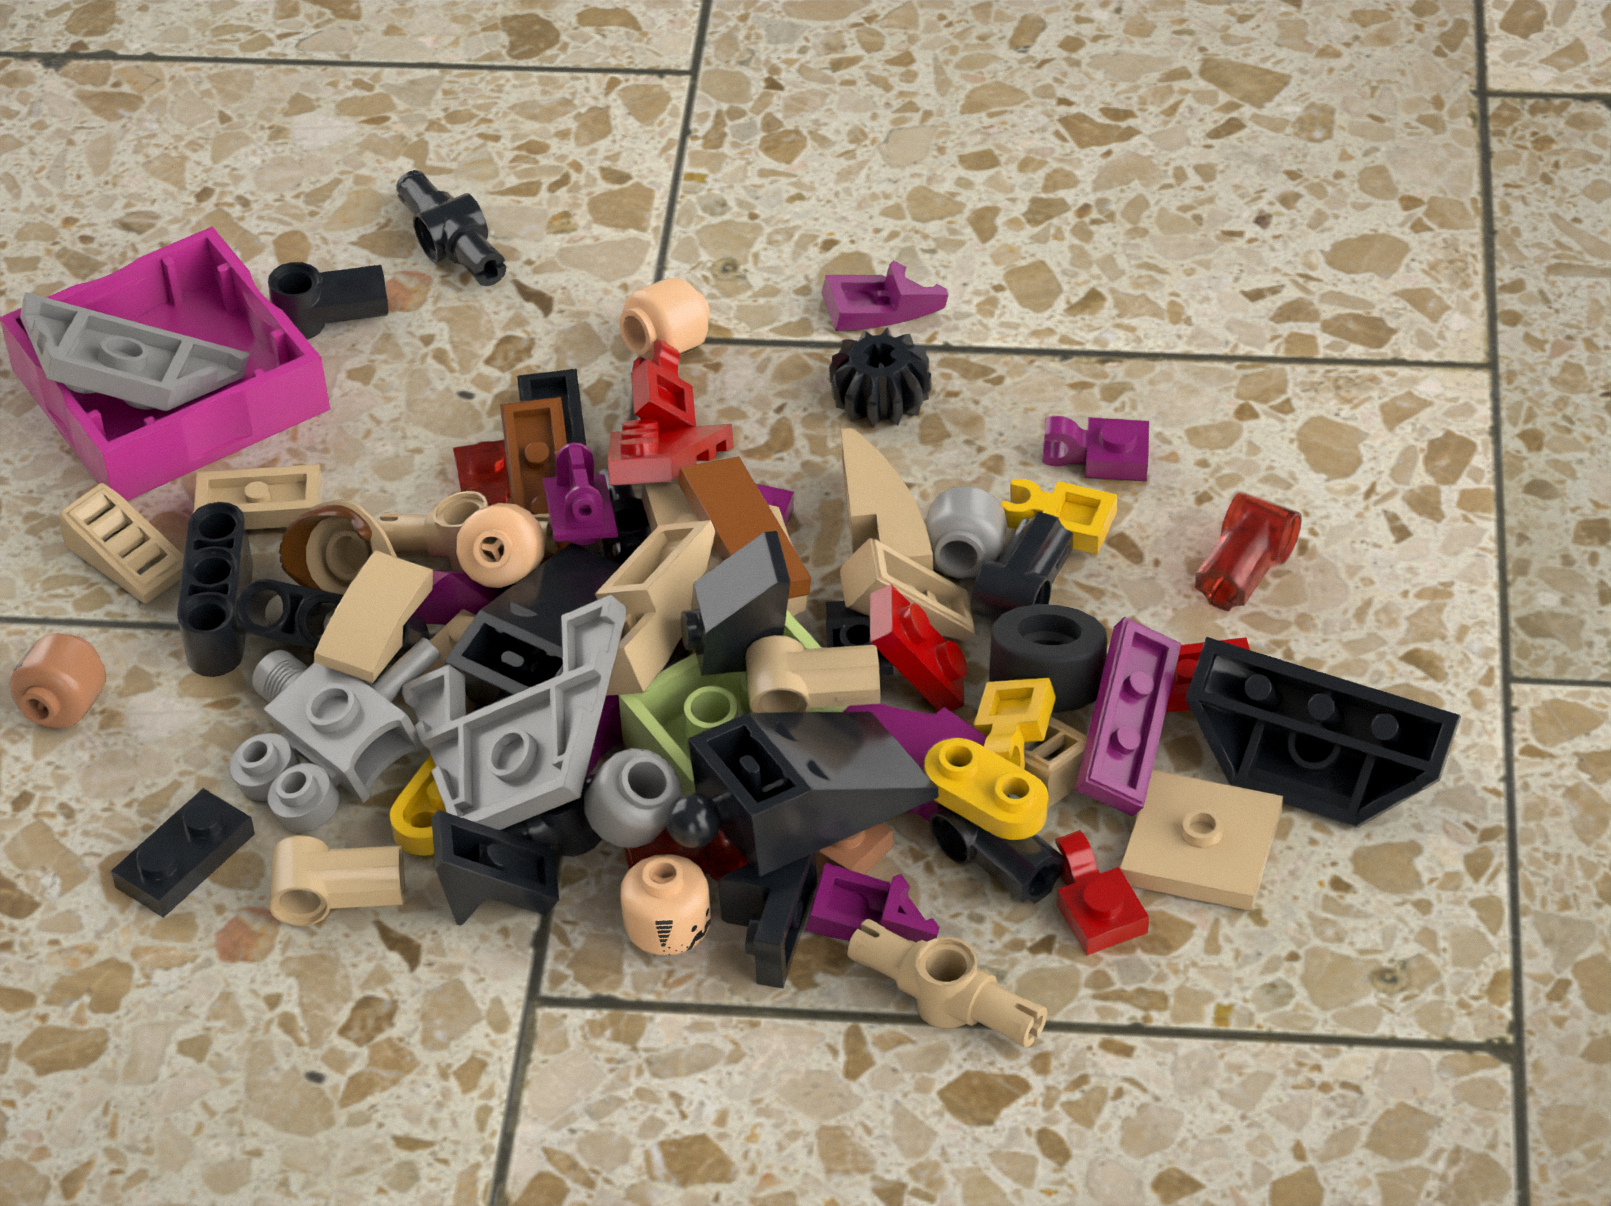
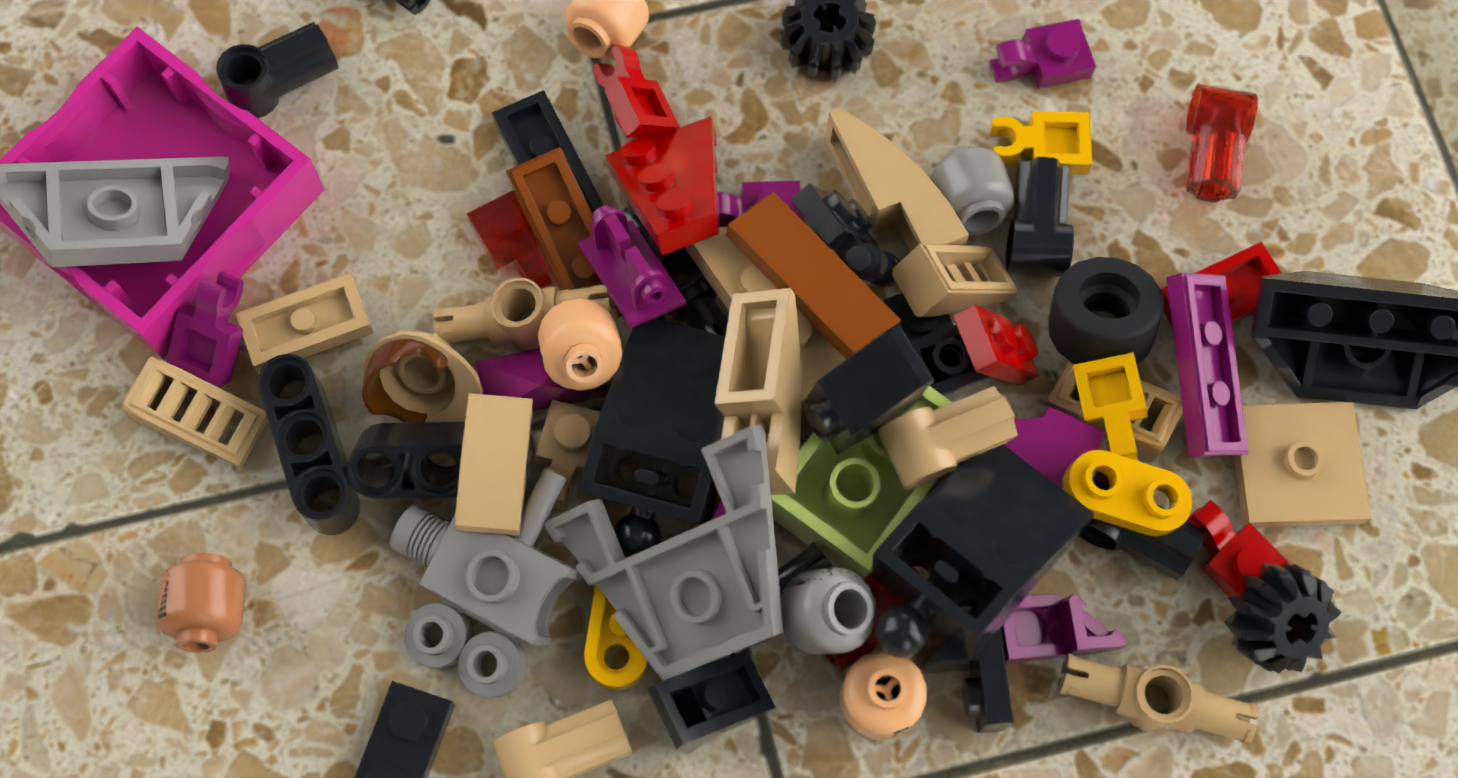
camera: 25 degrees left, 25 degrees up
(160, 483) = (201, 335): none -> magenta plate
(813, 531) = (845, 229): none -> black plate
(1109, 915) = (1282, 617): none -> black gear

